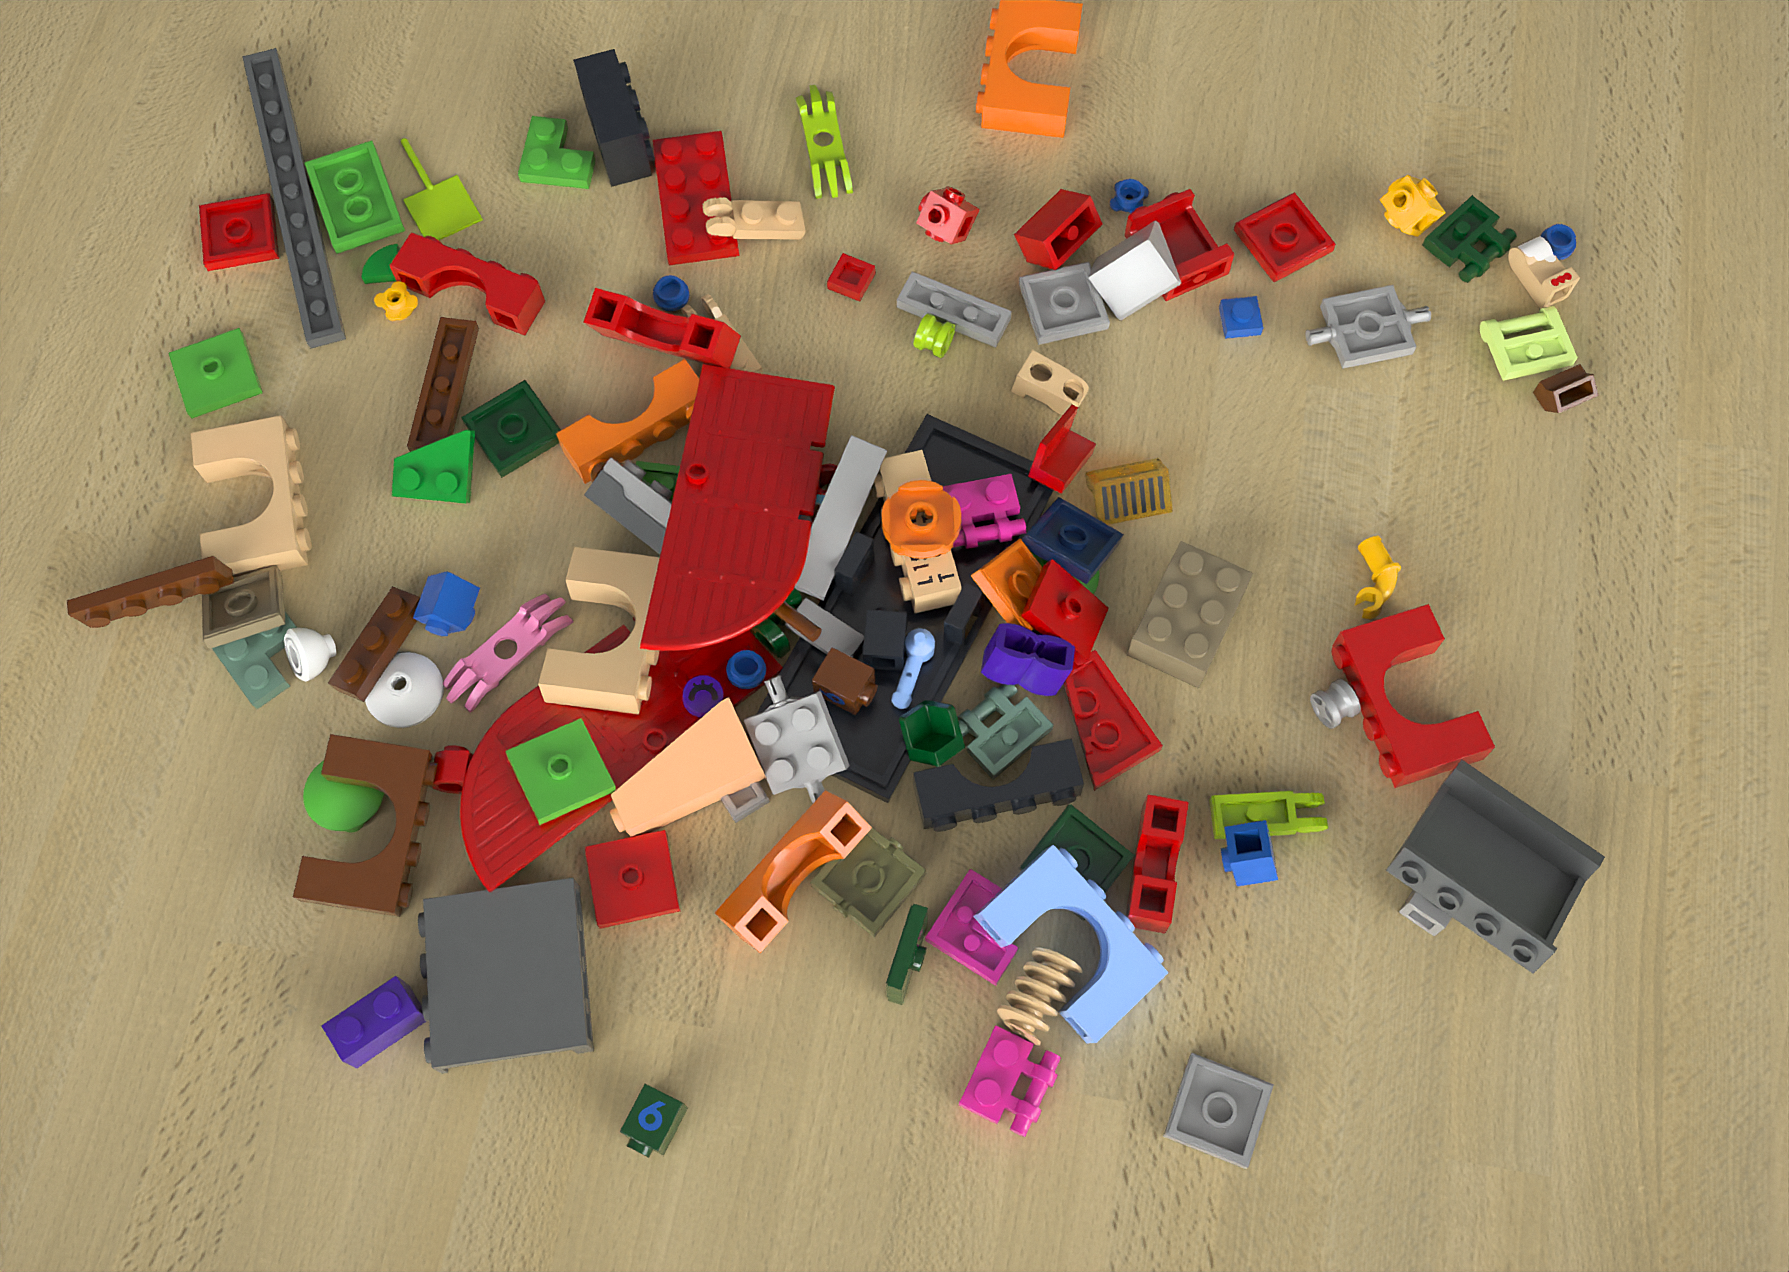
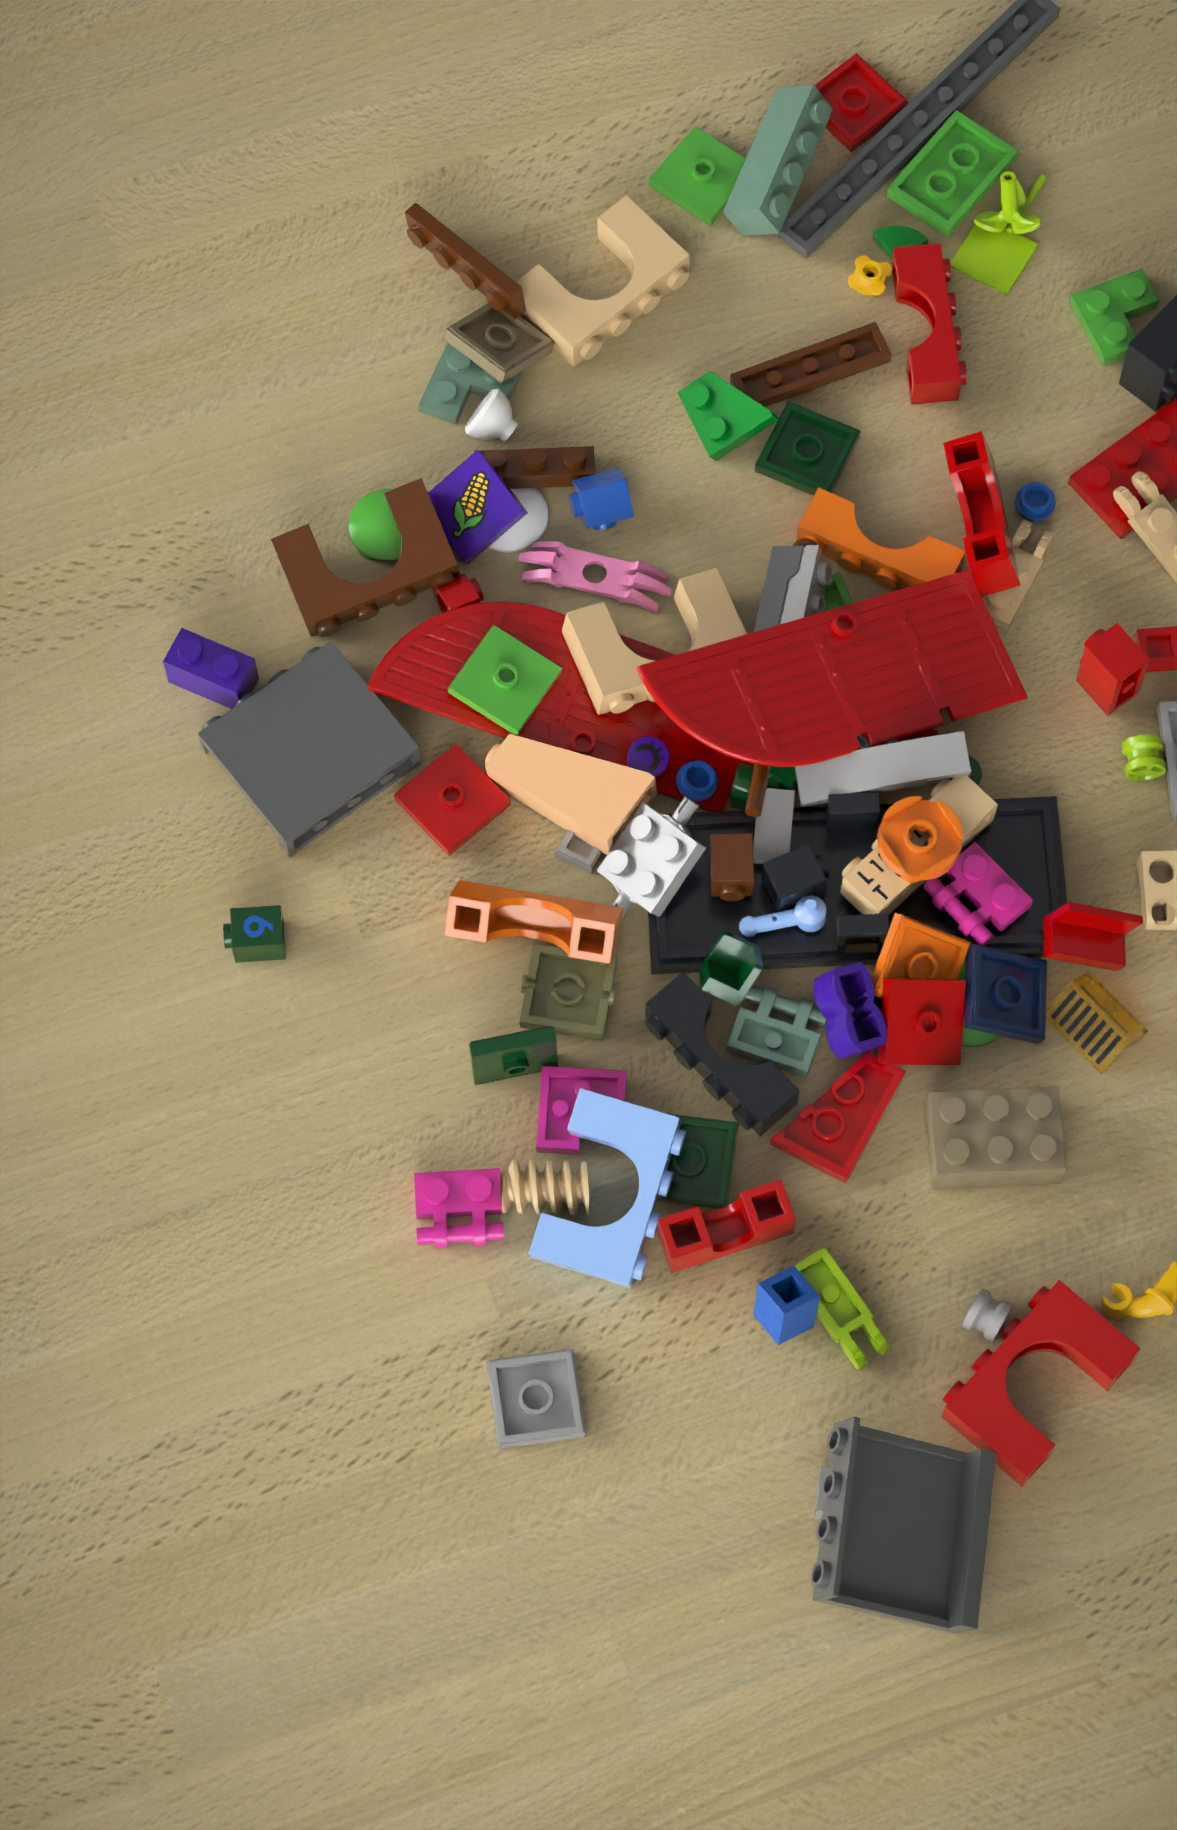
camera: 60 degrees right, 0 degrees up
(248, 307) = (778, 160): none -> sand green brick
(381, 707) = (475, 506): none -> dark purple tile
(411, 172) = (1011, 203): none -> lime plant
(851, 312) = (1112, 668): none -> red brick

